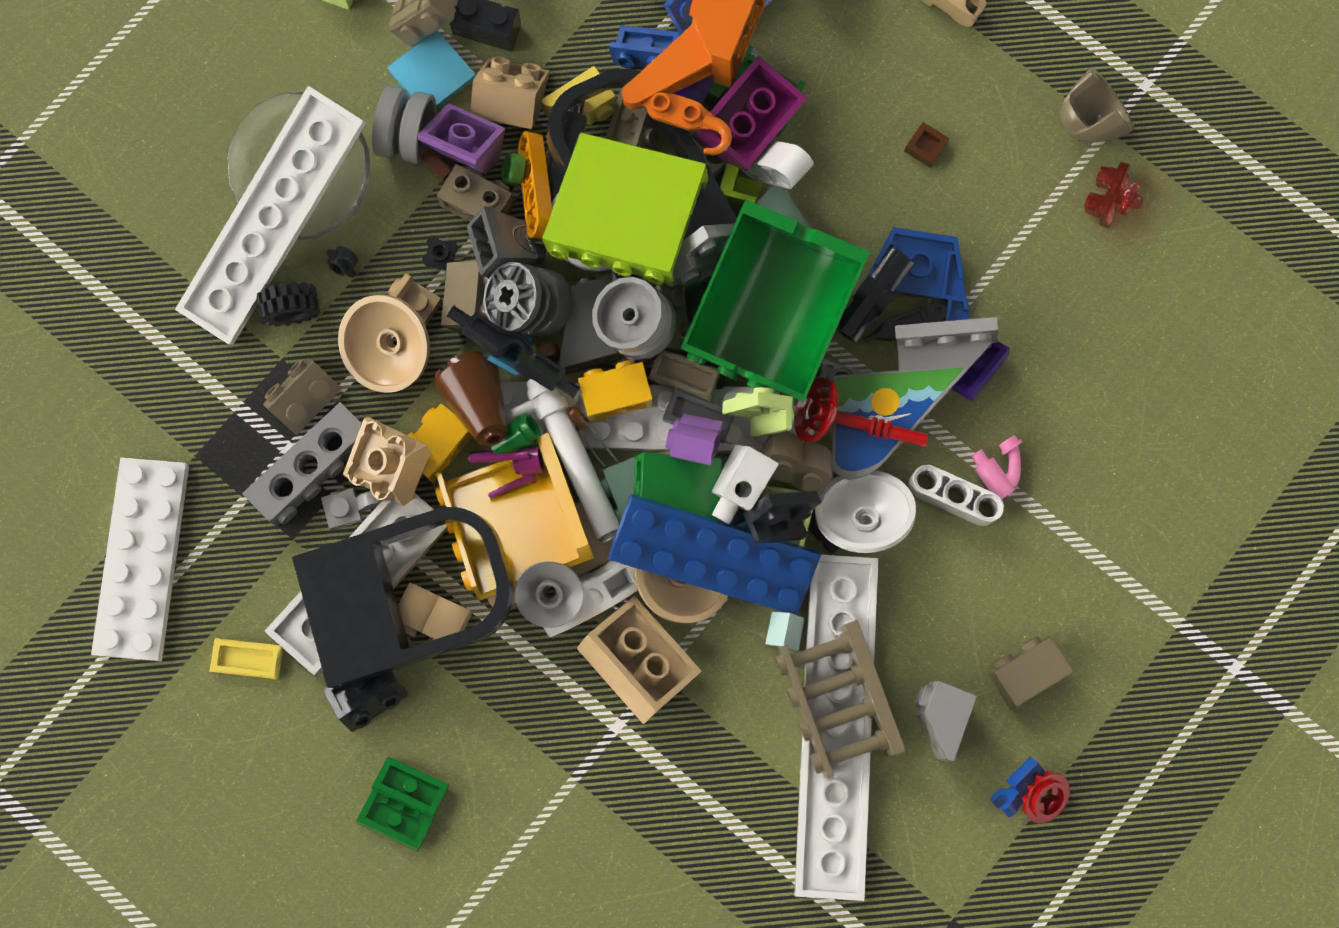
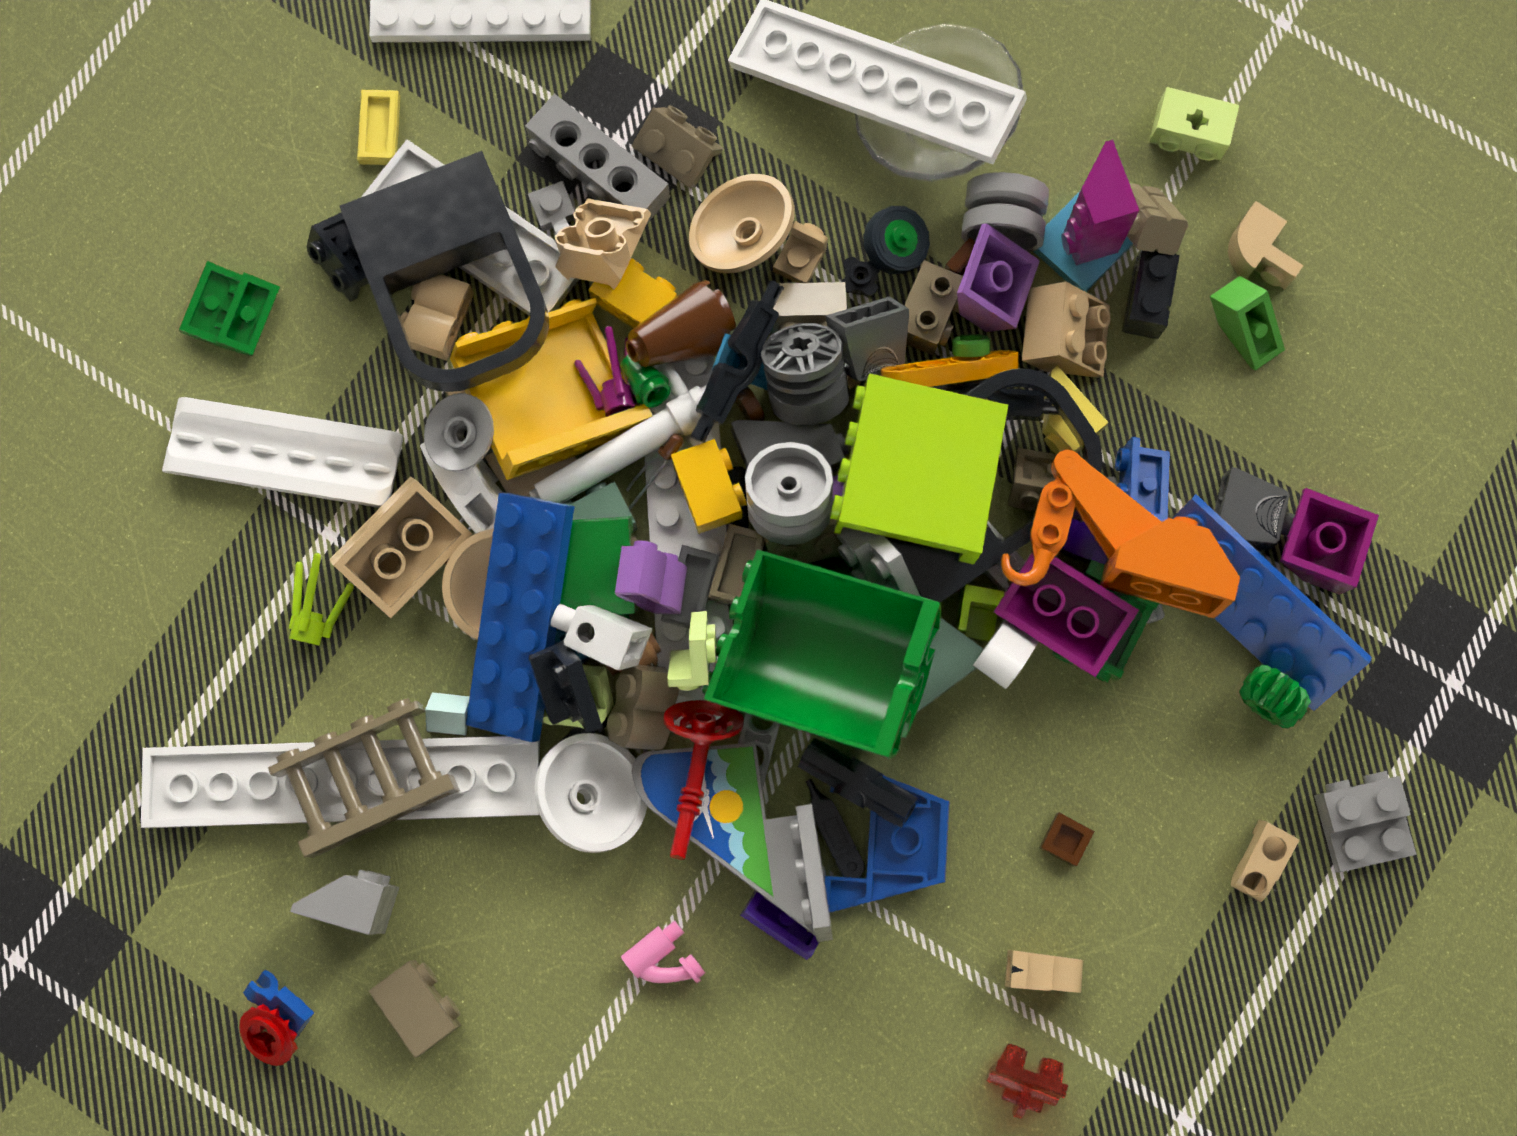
camera: 85 degrees right, 0 degrees up
(288, 304) = (777, 114): black tyre -> none
(342, 261) = (837, 169): black plate -> none
(412, 43) = (1102, 210): none -> magenta slope
(413, 218) = (896, 240): none -> black wheel
(541, 762) = (283, 452): none -> white plate
(699, 745) = (305, 624): none -> lime plant
(971, 494) = (608, 918): white beam -> none
(1030, 174) = (1043, 972): none -> tan leg
(1094, 110) = (1135, 1051): dark tan hair -> none

